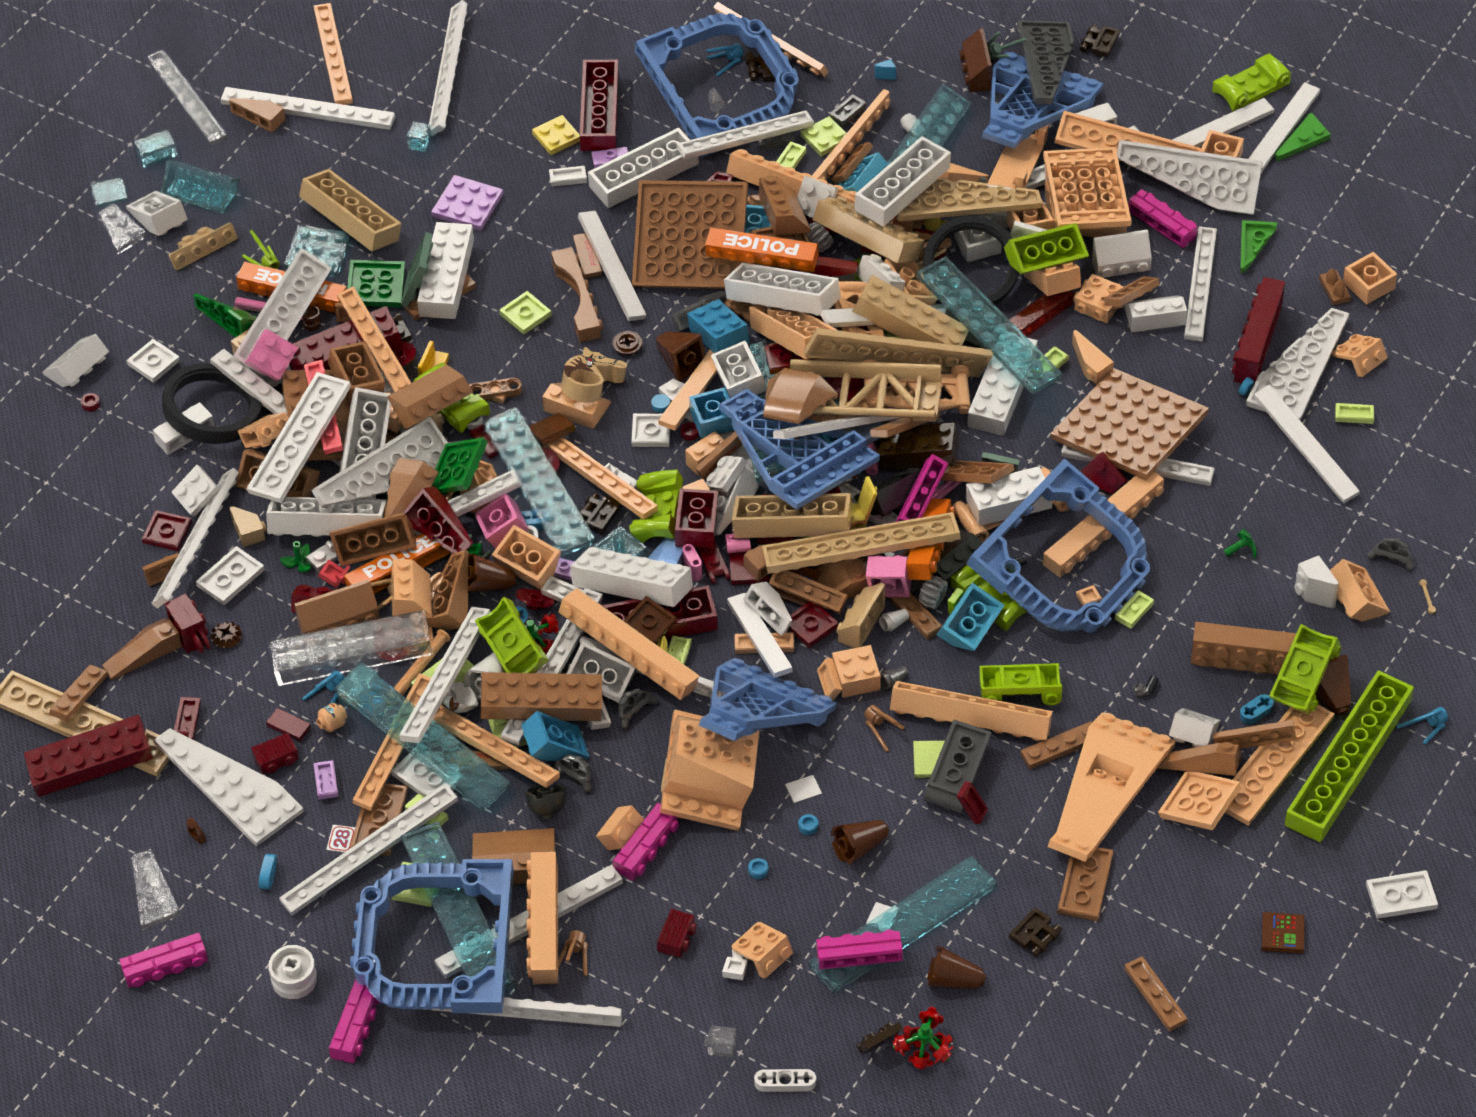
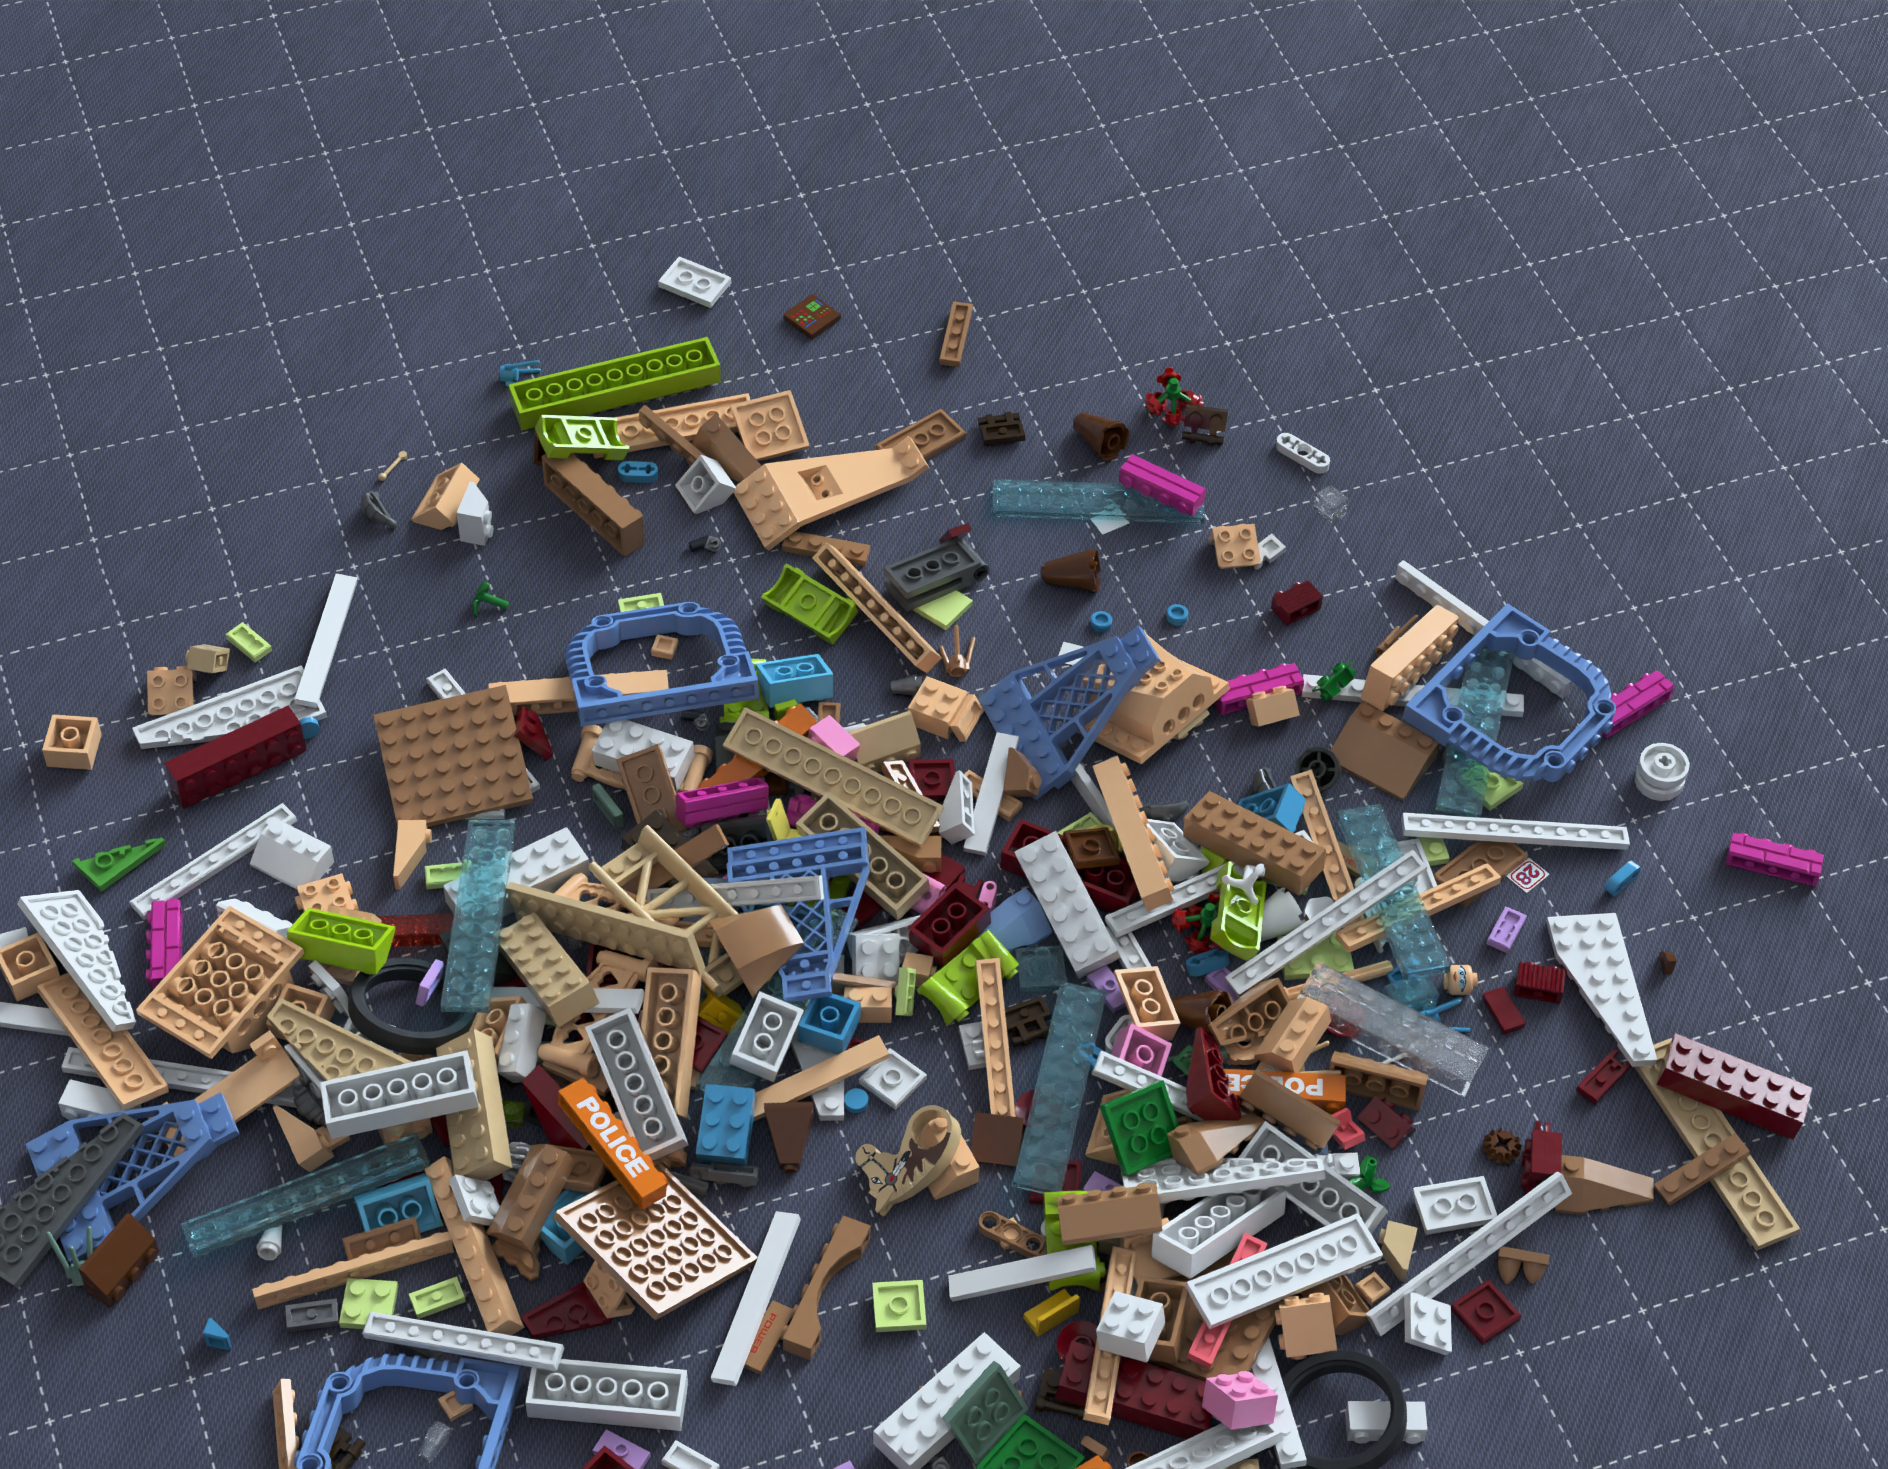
camera: 145 degrees left, 0 degrees up
(152, 891) = (1745, 929): clear wing -> none
(247, 501) = (1372, 1288): none -> light nougat tile
(362, 336) = (1130, 1326): none -> white brick
(466, 356) = (1022, 1273): none -> white tile
(513, 640) = (1250, 875): none -> white piece
(534, 599) = (1168, 958): dark red dish -> none
(592, 876) = (1328, 684): none -> green hinge
(634, 340) = (822, 1184): reddish brown gear -> none
(687, 468) = (905, 991): none -> yellowish green plate
(748, 653) = (1021, 776): none -> medium nougat slope
(972, 273) = (429, 982): none -> lavender tile
(1131, 291) = (297, 874): medium nougat plate -> none
(1334, 287) = (105, 768): medium nougat tile -> none
(1356, 373) = (207, 658): none -> tan brick

